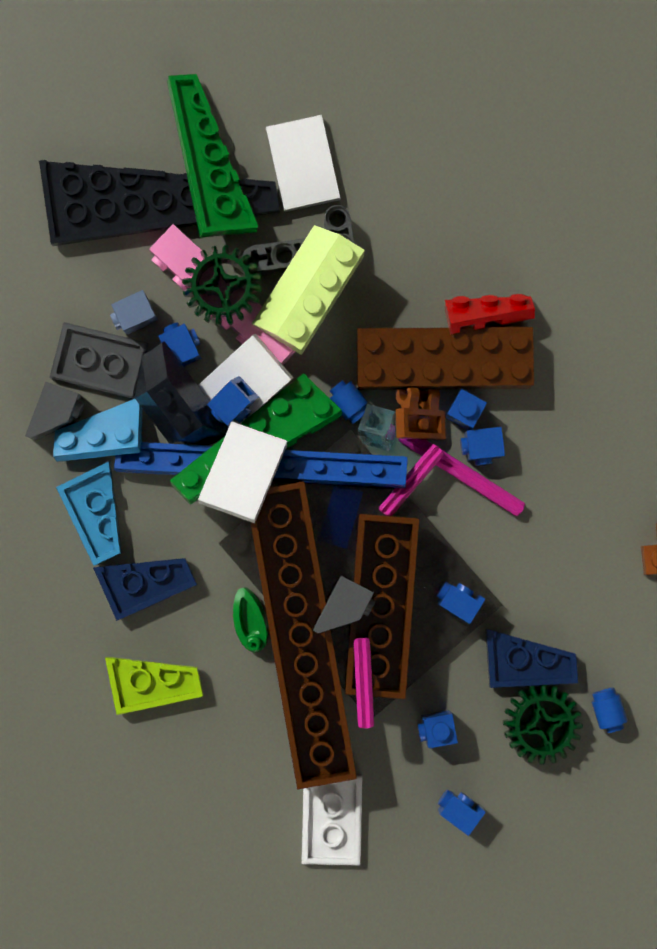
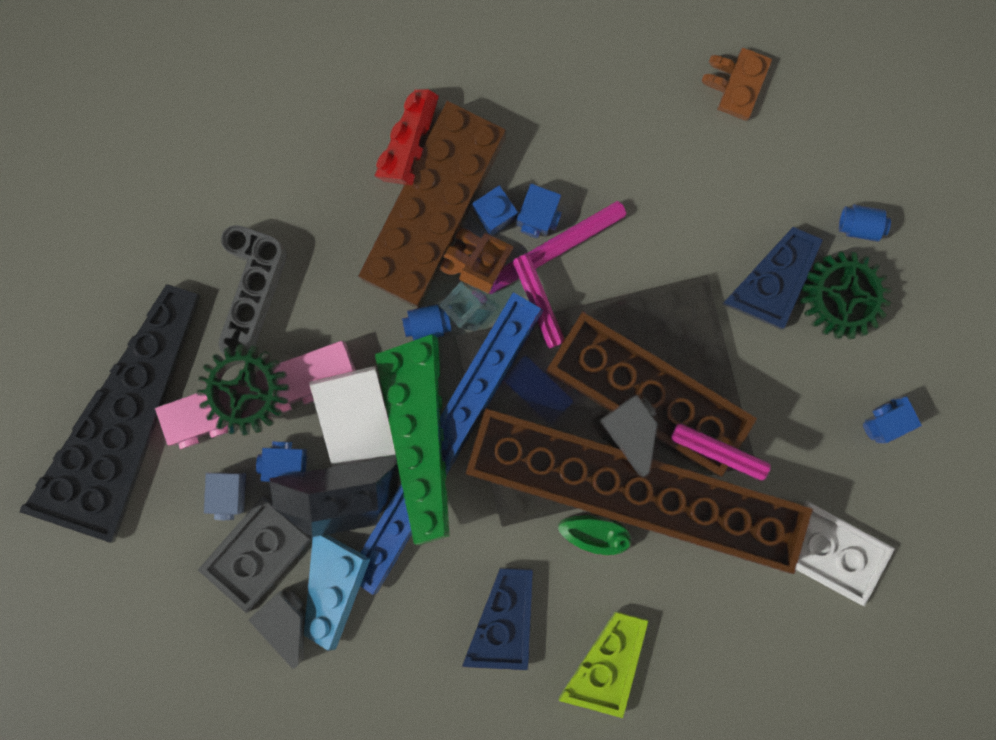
camera: 55 degrees left, 0 degrees up
(93, 512) = (405, 637): dark azure wing -> none
(212, 181) = (133, 346): green wing -> none
(233, 401) = (367, 439): blue brick -> none
(242, 472) = (444, 466): white tile -> none
(303, 163) = (163, 246): white tile -> none
(309, 288) = (291, 303): yellowish green slope -> none
(437, 729) = (799, 401): blue brick -> none
(459, 601) = (684, 314): blue brick -> none

